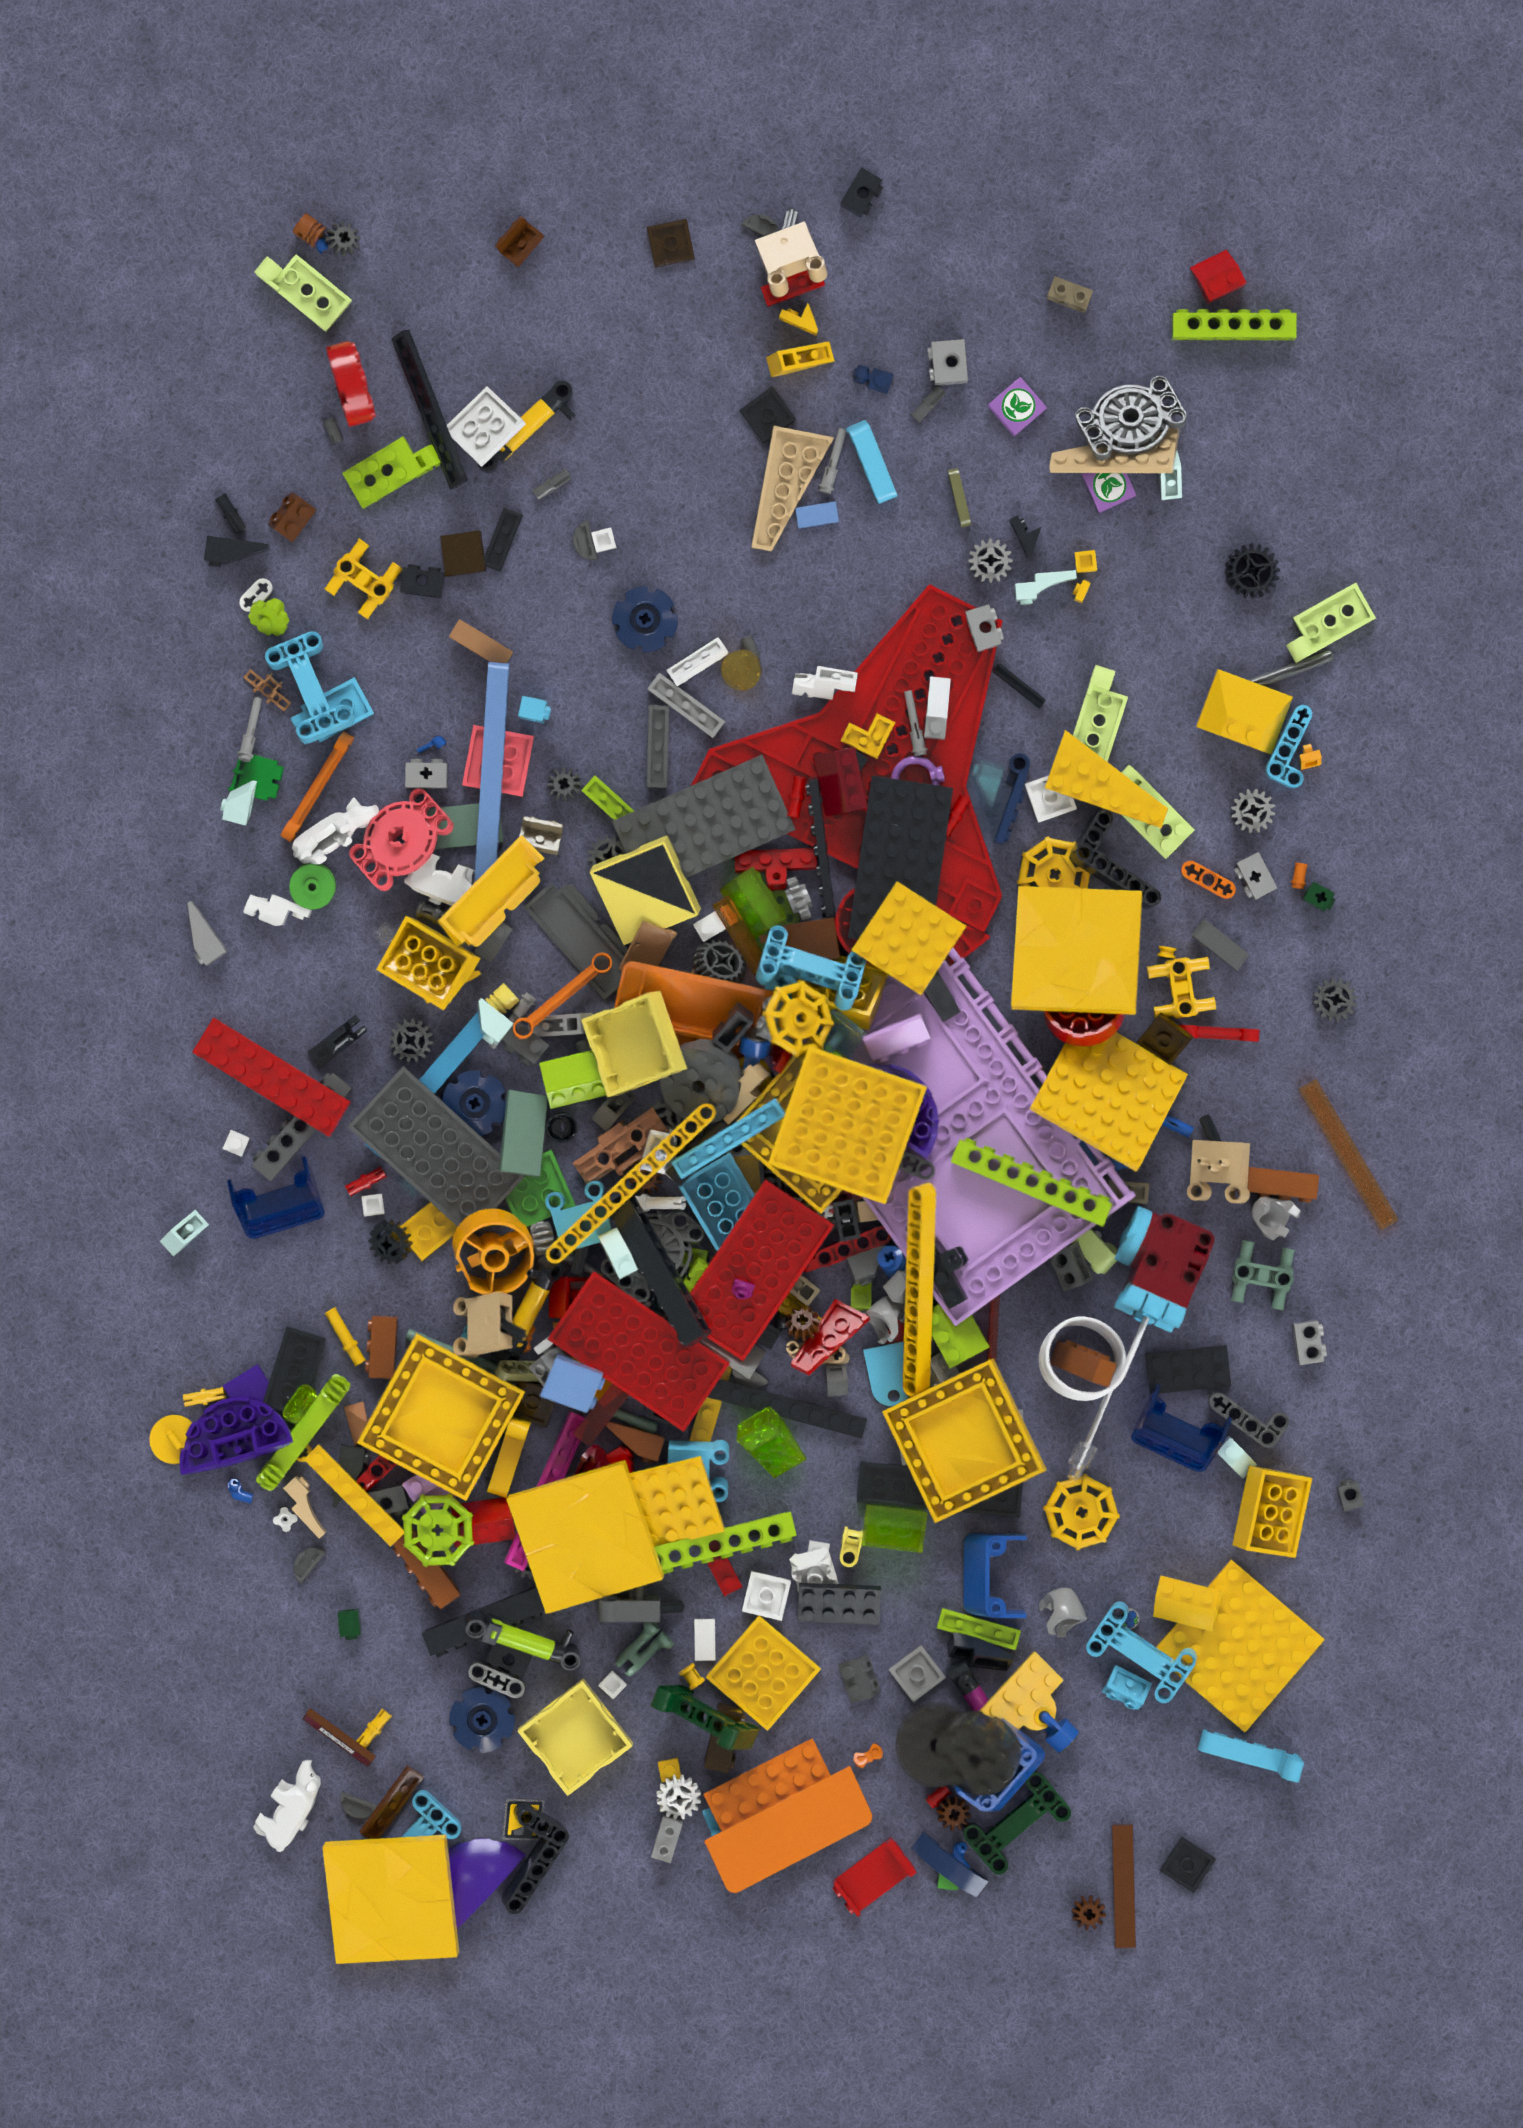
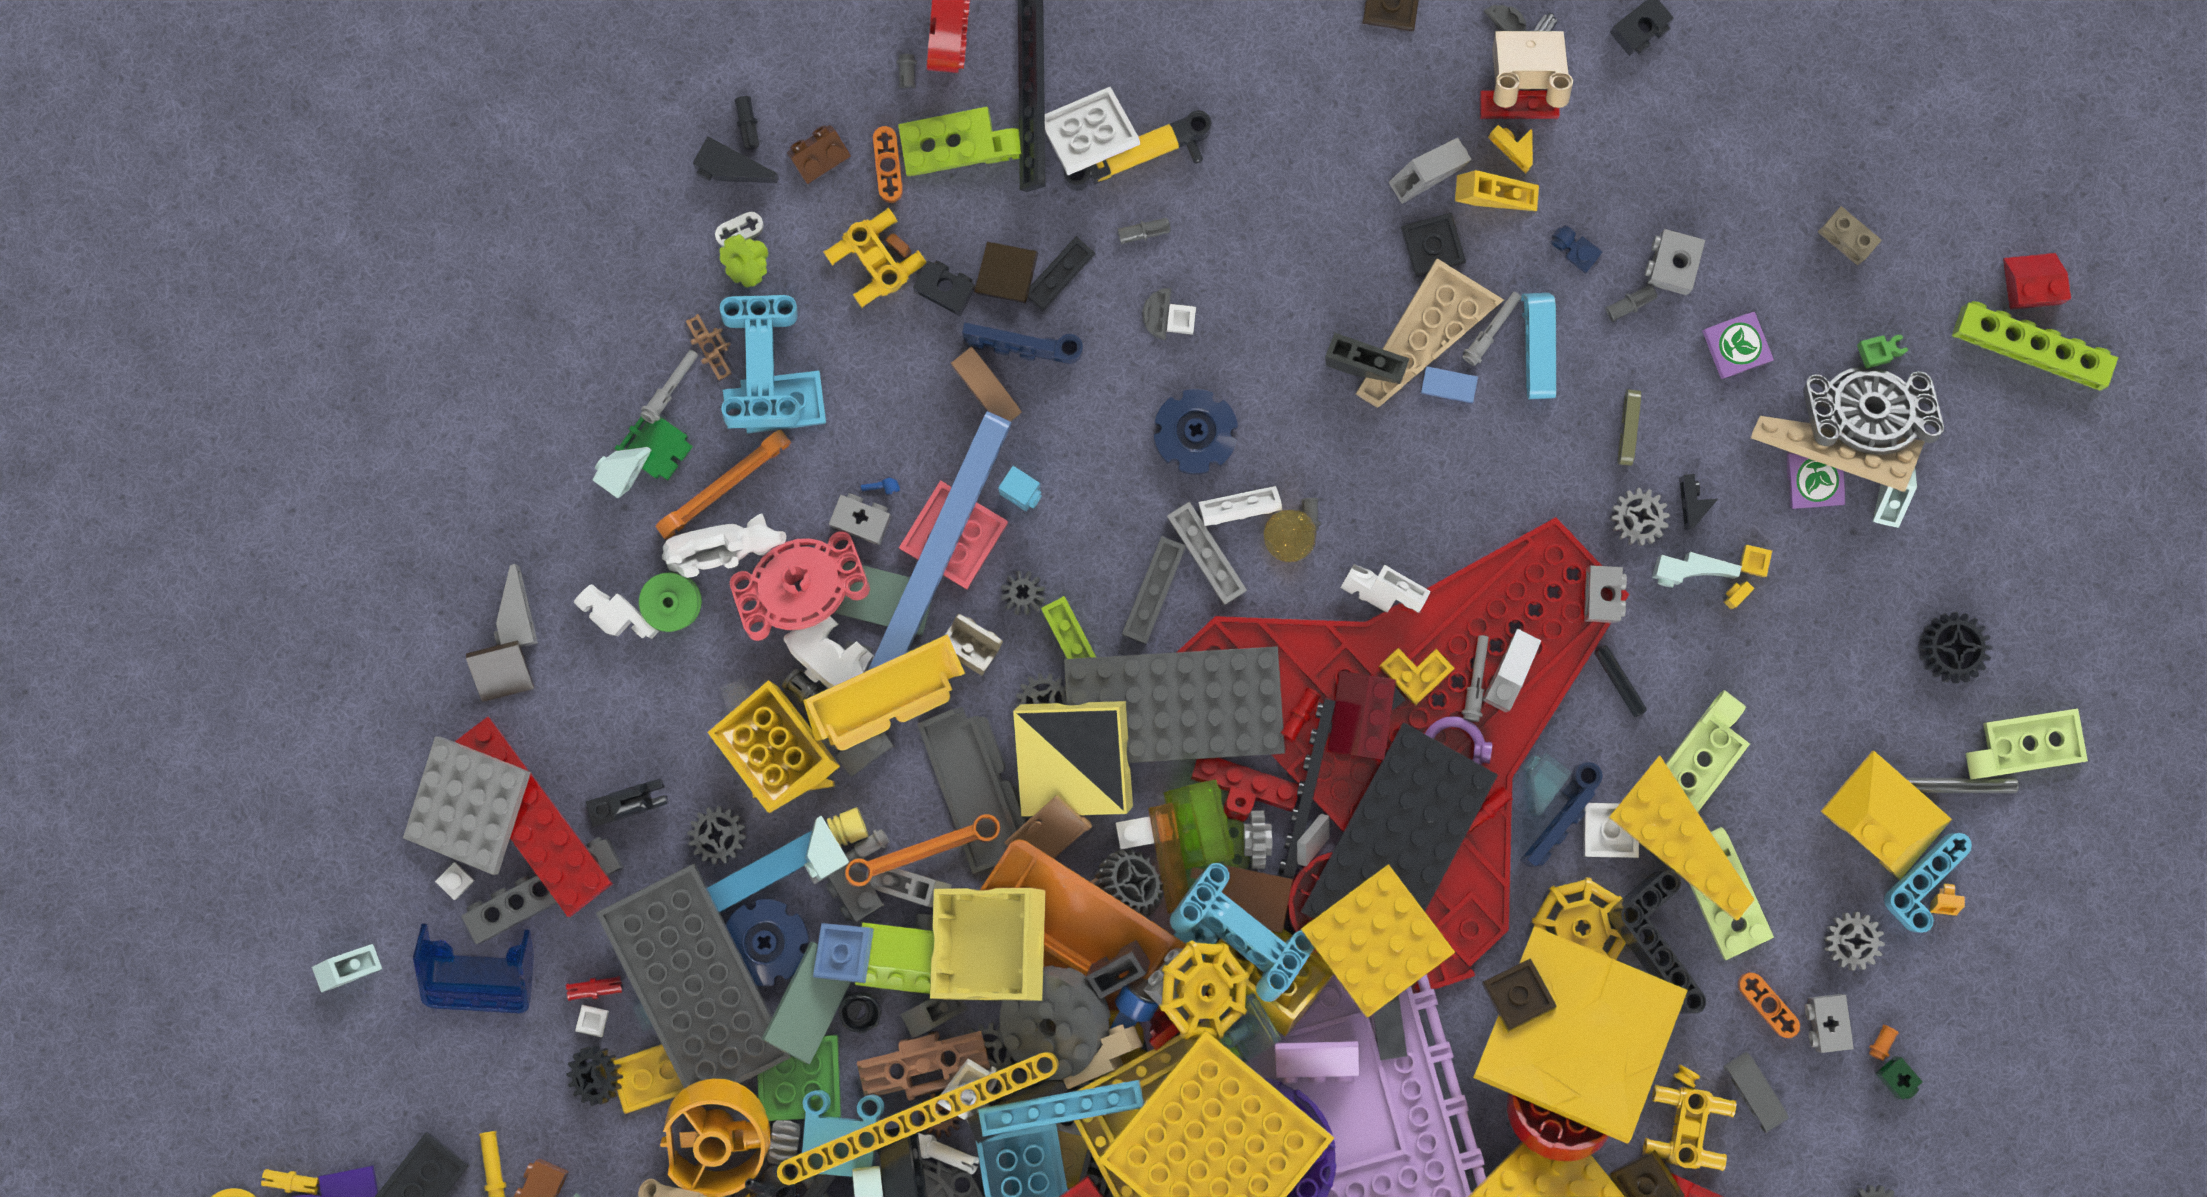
camera: 20 degrees right, 5 degrees down
(209, 981) = (499, 671): none -> tile
(224, 1085) = (466, 805): none -> light grey plate
(347, 522) = (878, 146): none -> orange beam
(377, 563) = (898, 246): none -> dark orange tile
(499, 604) = (1026, 346): none -> dark blue hinge
(533, 1089) = (843, 953): none -> medium blue tile
(744, 361) = (1429, 170): none -> light grey slope
(748, 521) = (1365, 360): none -> pearl dark grey slope
(838, 883) = (1313, 840): none -> light grey tile
(1023, 939) = (1519, 995): none -> dark brown tile
(1121, 372) = (1879, 351): none -> bright green plate

